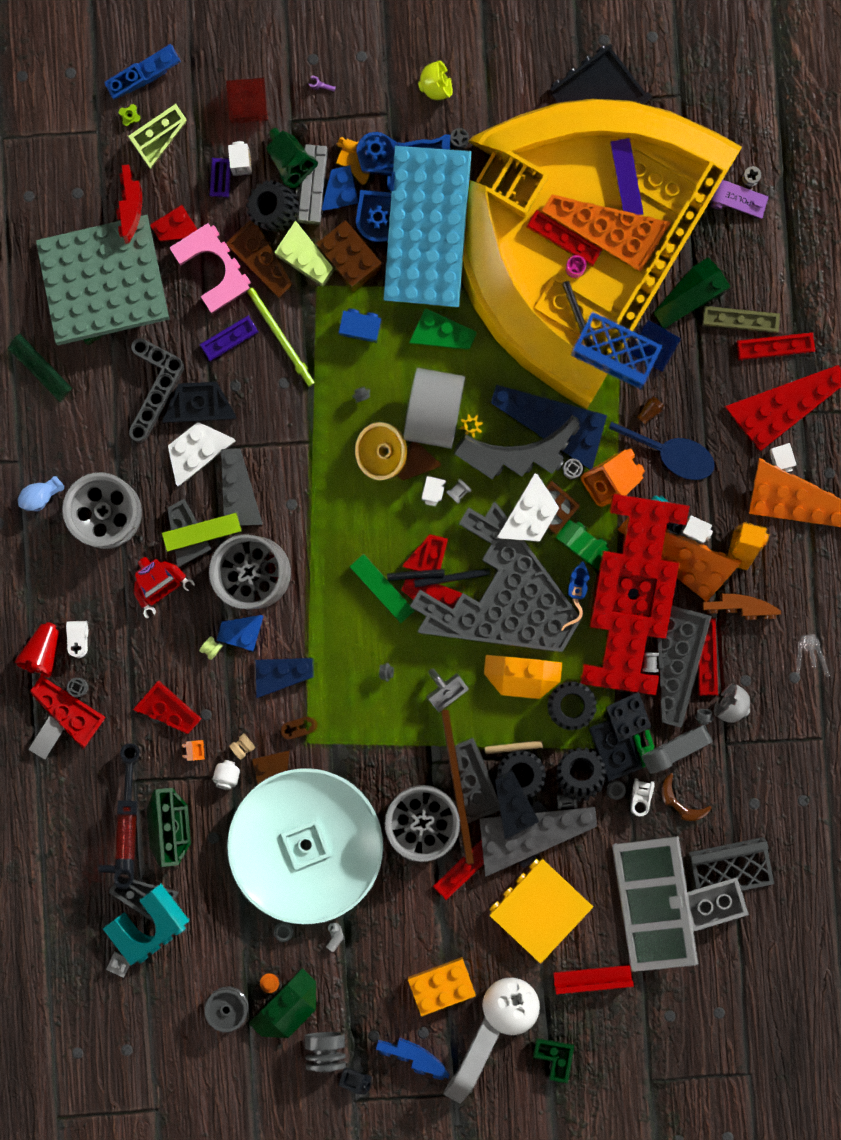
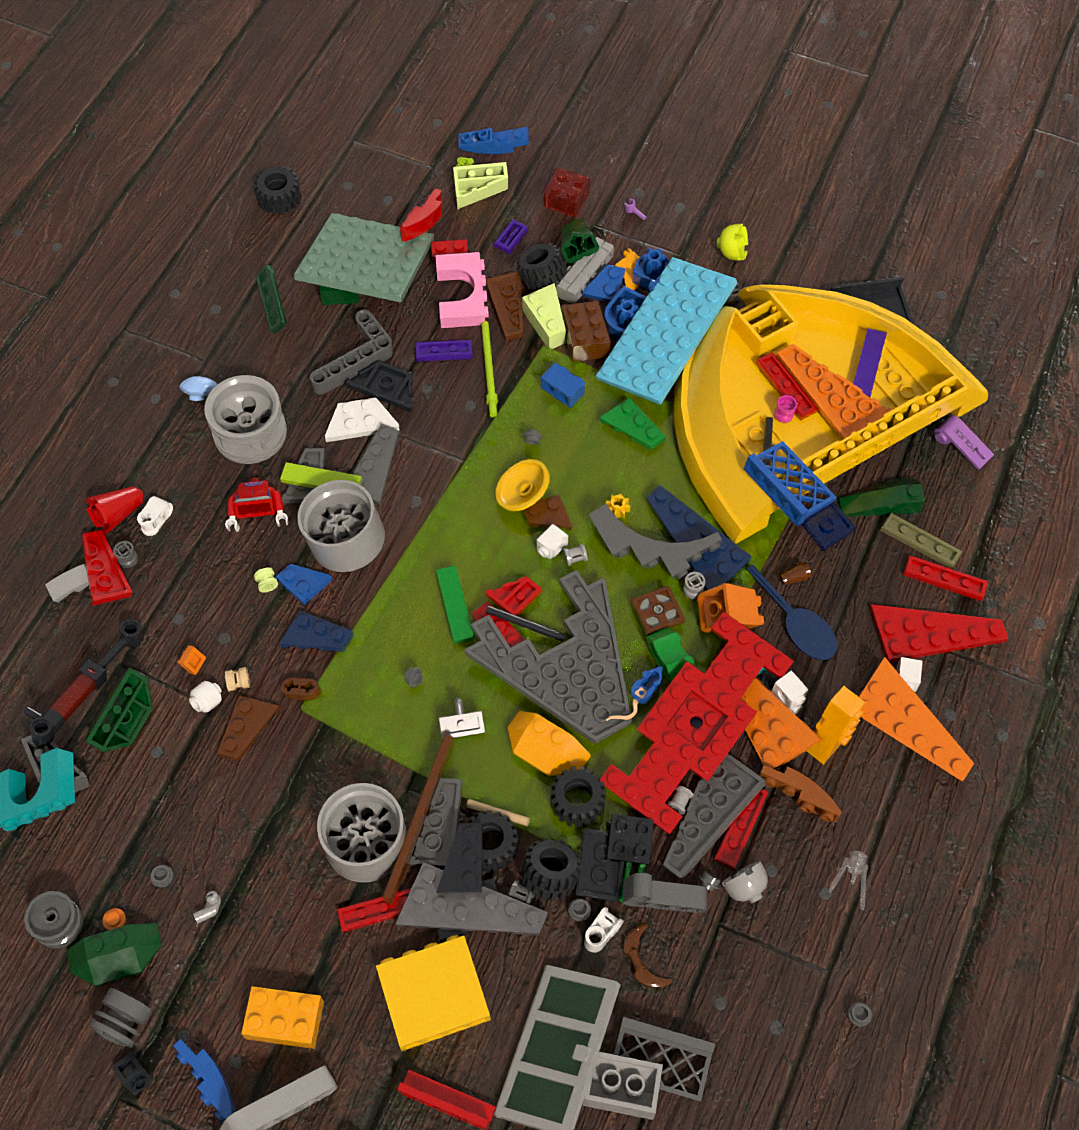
camera: 25 degrees right, 25 degrees down
(168, 708) = (192, 612): red wing -> none
(239, 158) = (534, 224): white brick -> none
(298, 882) = (211, 765): light aqua dish -> none
(416, 574) = (496, 604): black bar -> none
(434, 408) = (591, 464): light grey wheel -> none
(505, 1013) = (341, 1089): white piece -> none
(531, 514) = (633, 602): white wing -> none
(754, 171) = (988, 429): light grey bush -> none

